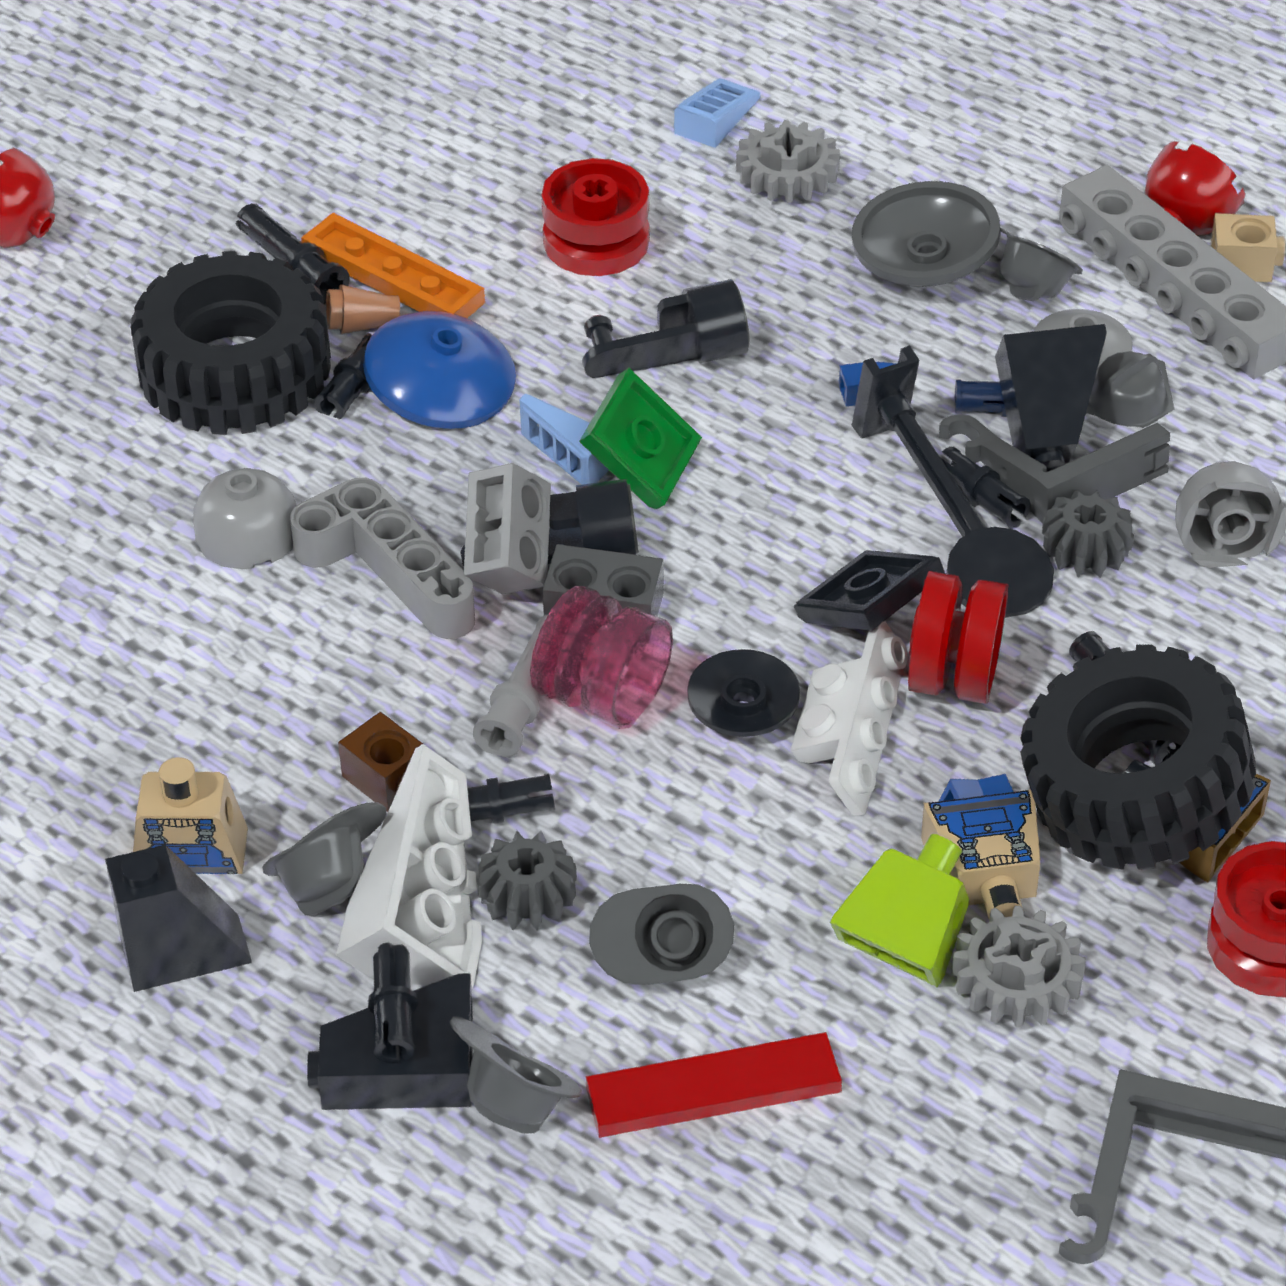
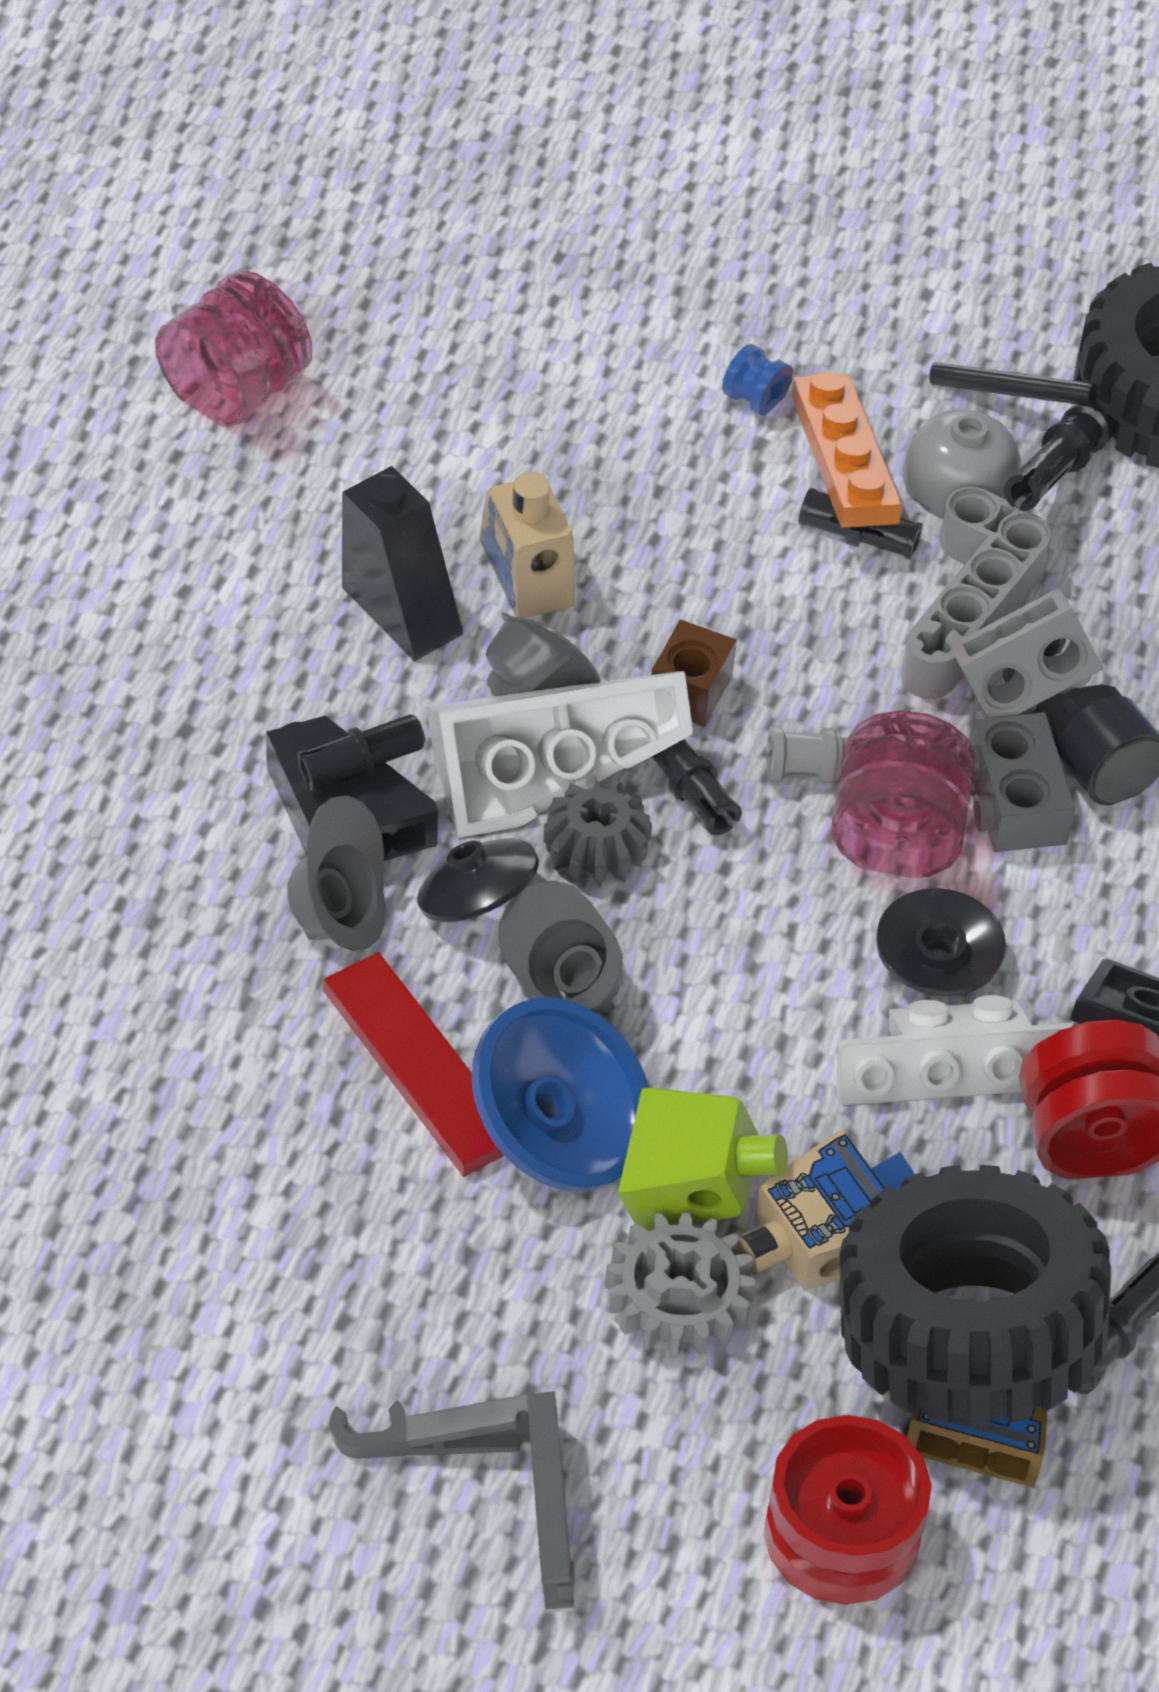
camera: 65 degrees right, 5 degrees up
(72, 616) = (757, 379): none -> blue wheel
(181, 455) = (1013, 384): none -> black bar
(192, 582) = (845, 450): none -> plate
(268, 605) = (895, 538): none -> black pin
(273, 445) = (1064, 450): none -> black pin
(560, 987) = (477, 879): none -> black dish
(813, 981) = (580, 1078): none -> blue dish

